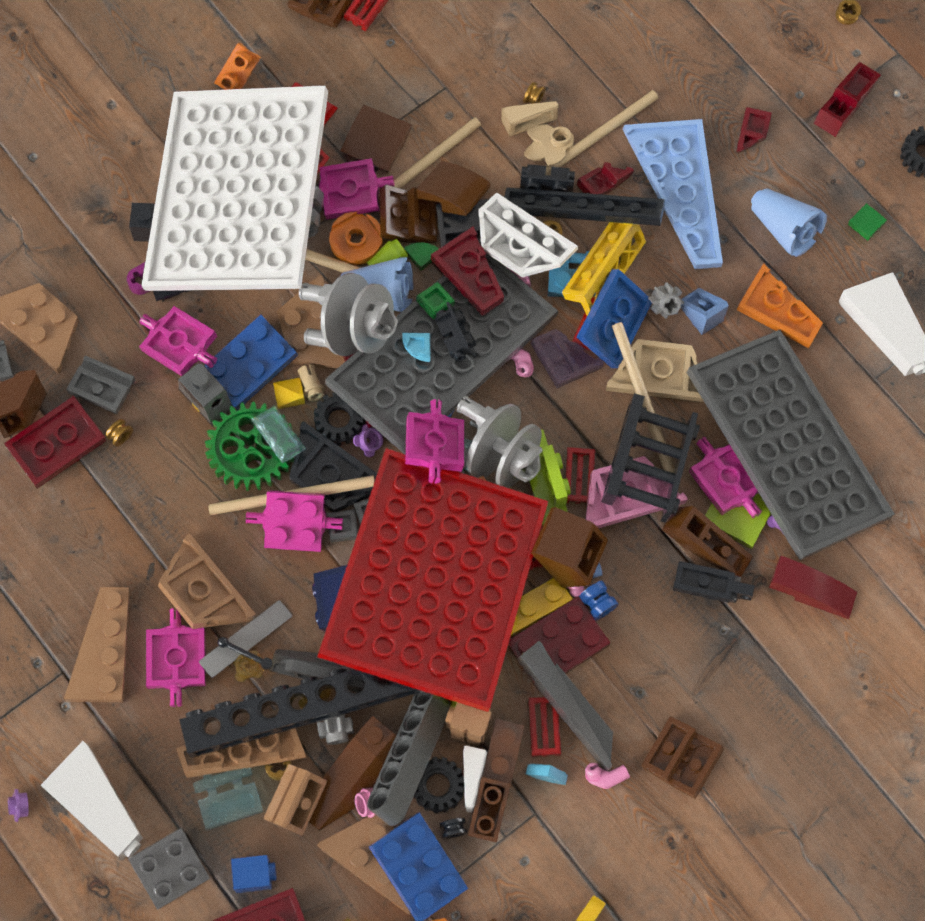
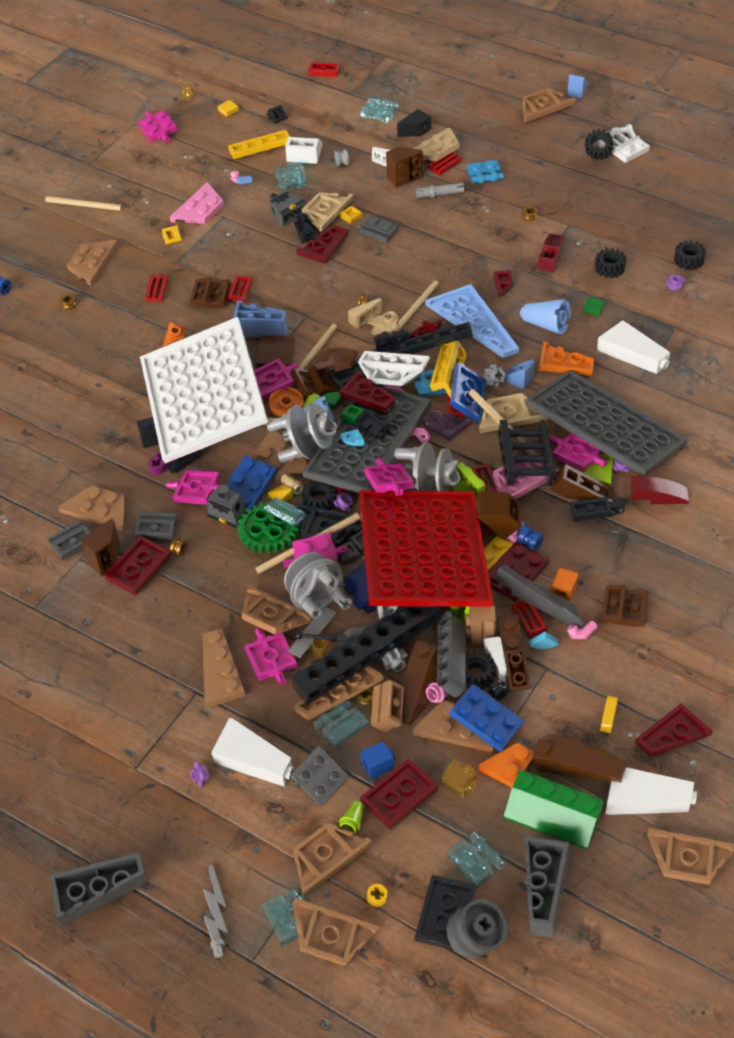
camera: 15 degrees left, 20 degrees down
(271, 573) = (315, 583): none -> light grey piece
(367, 80) = (259, 321): none -> medium blue wedge
(613, 694) = (565, 583): none -> orange brick

